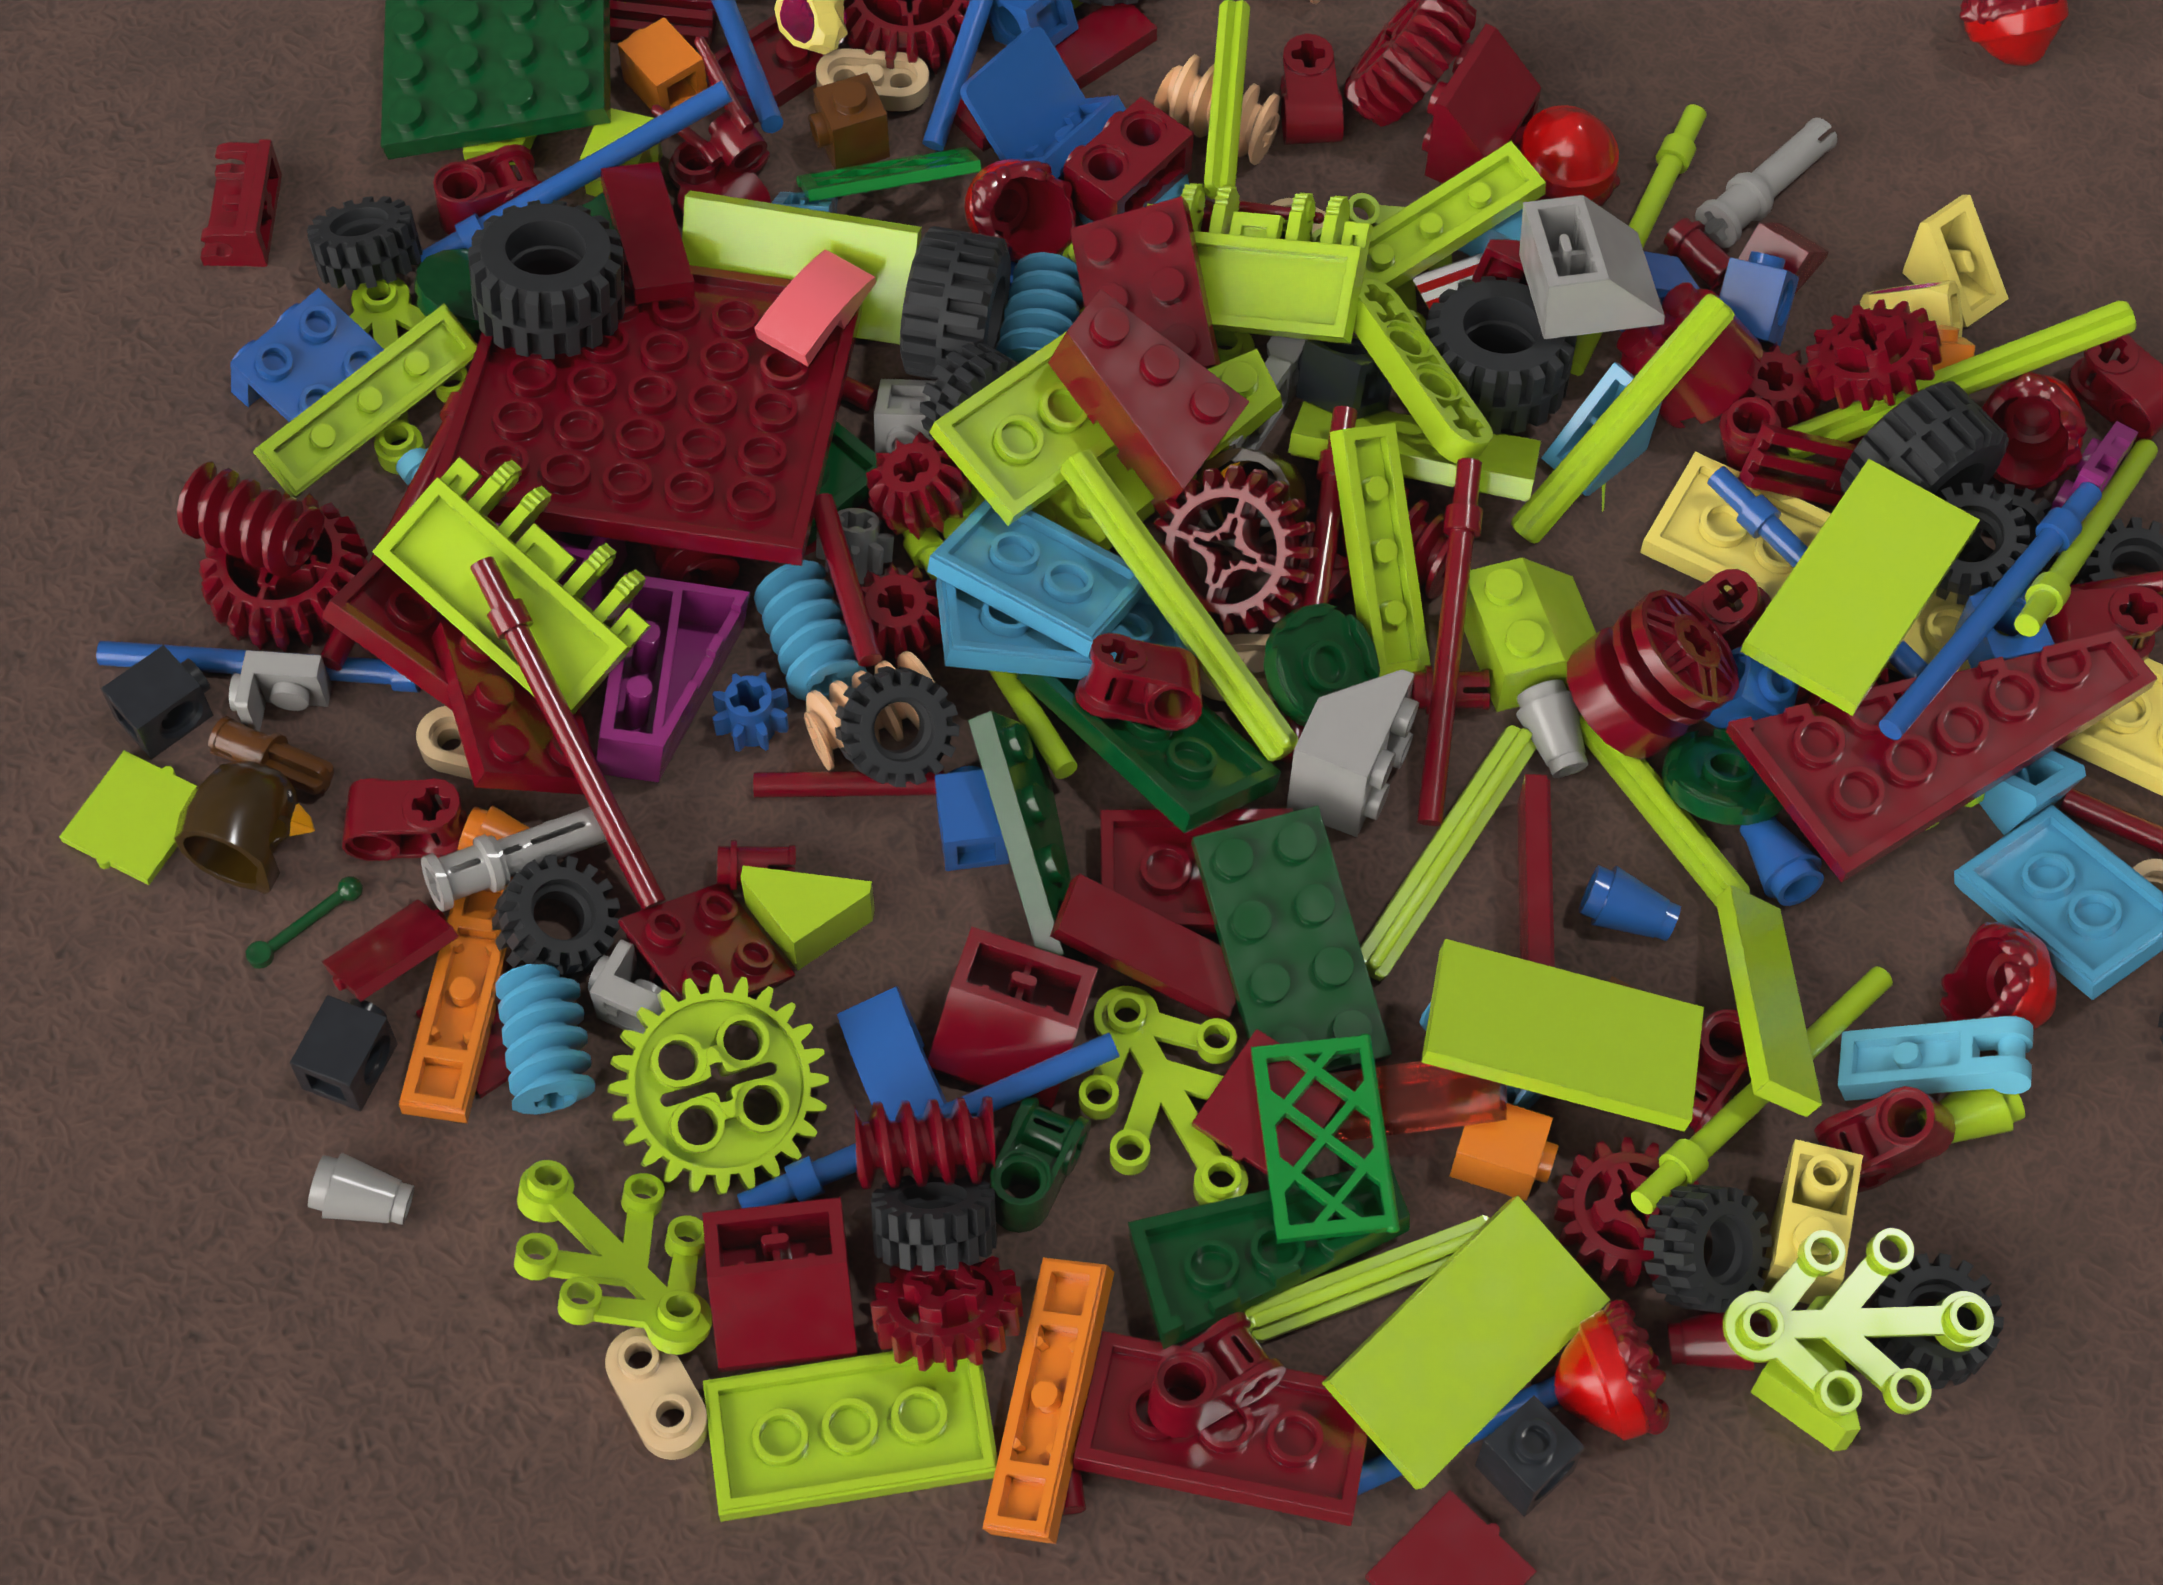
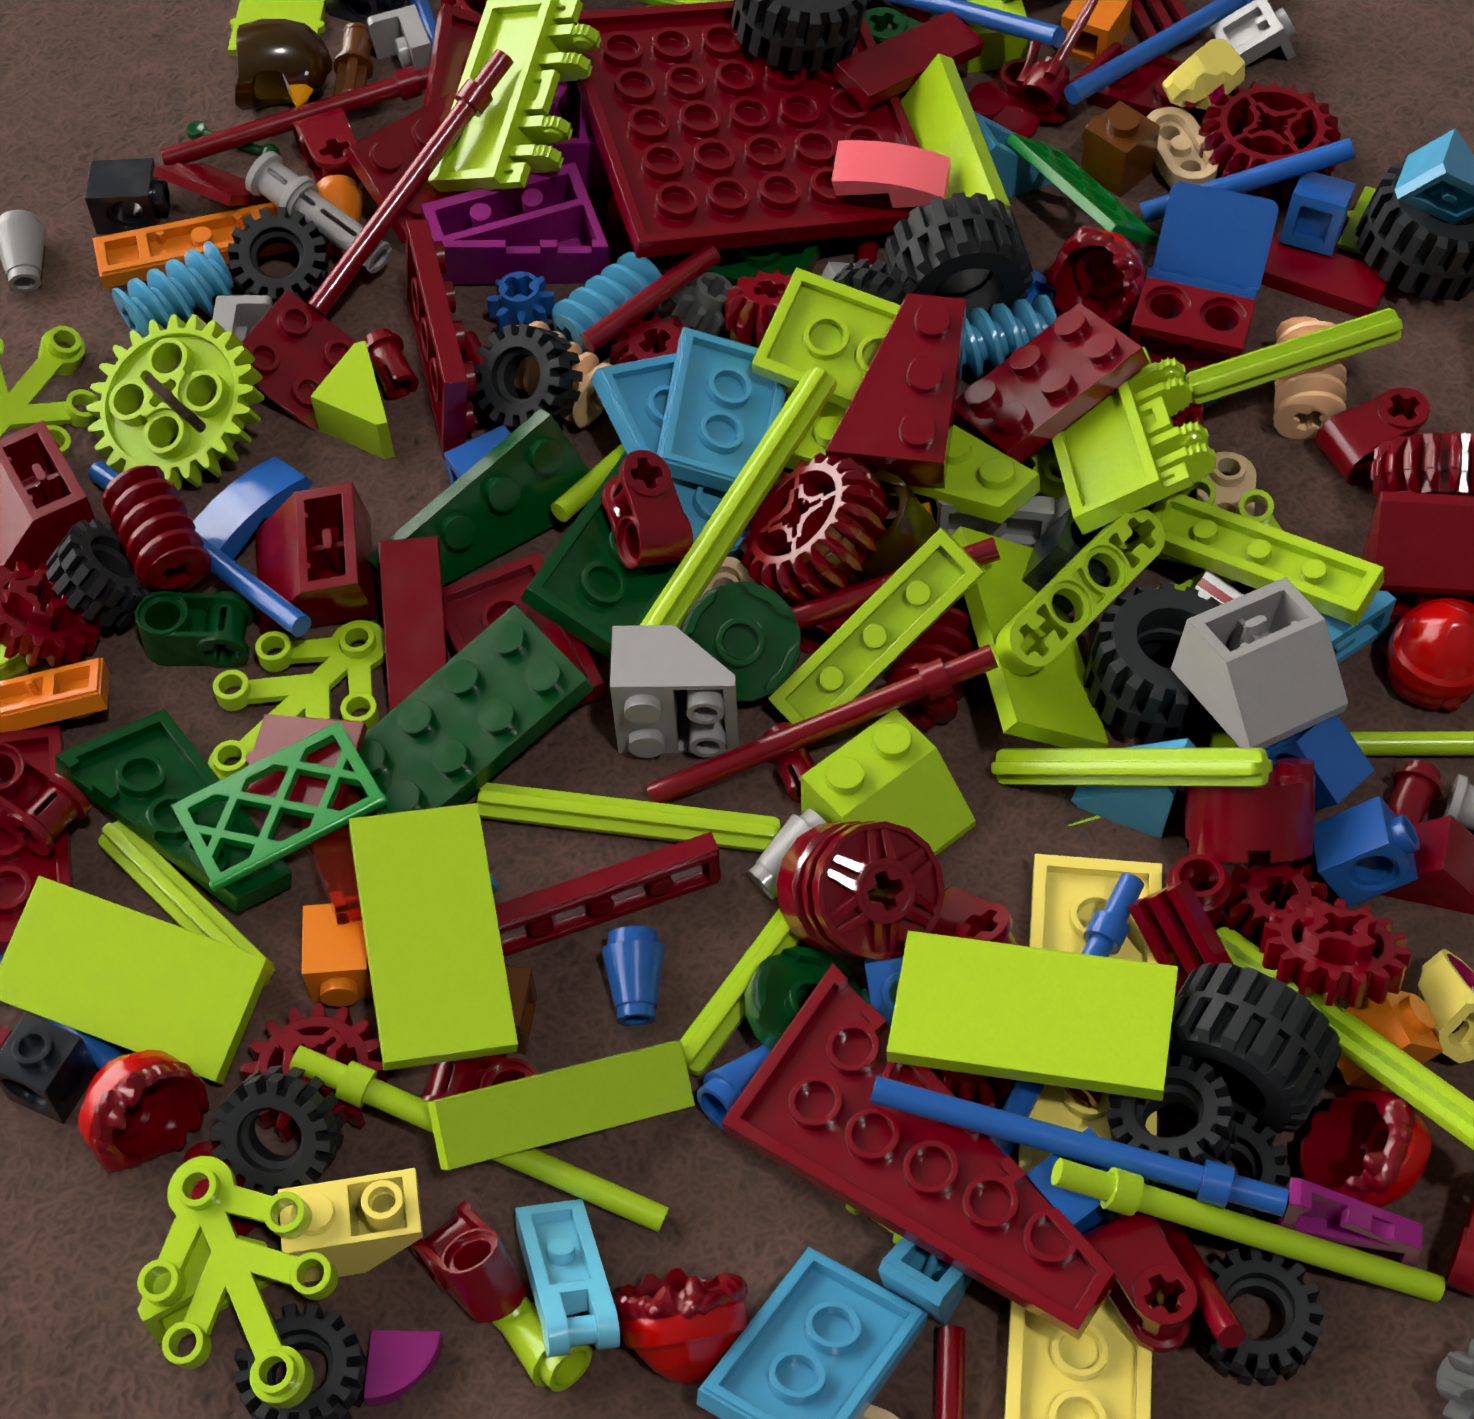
camera: 70 degrees right, 5 degrees down
(350, 710) = (405, 84): none -> dark red bar
(778, 796) = (438, 337): none -> dark red plate
(1948, 1232) = (399, 1362): none -> magenta tile

